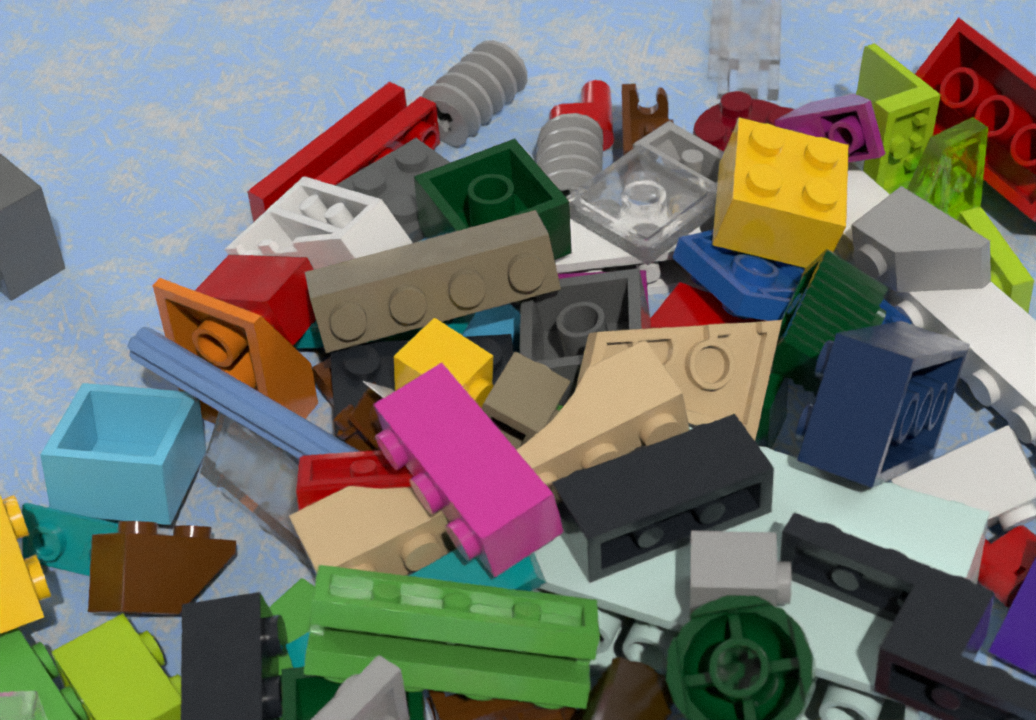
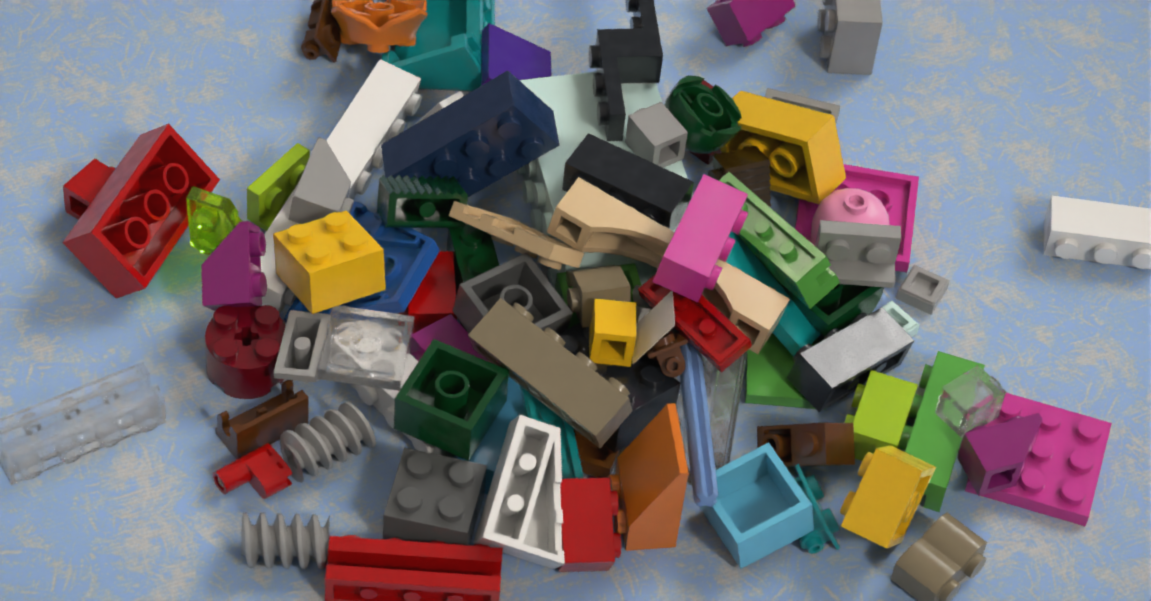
camera: 135 degrees left, 5 degrees up
(904, 114) = (169, 269): lime bracket -> none

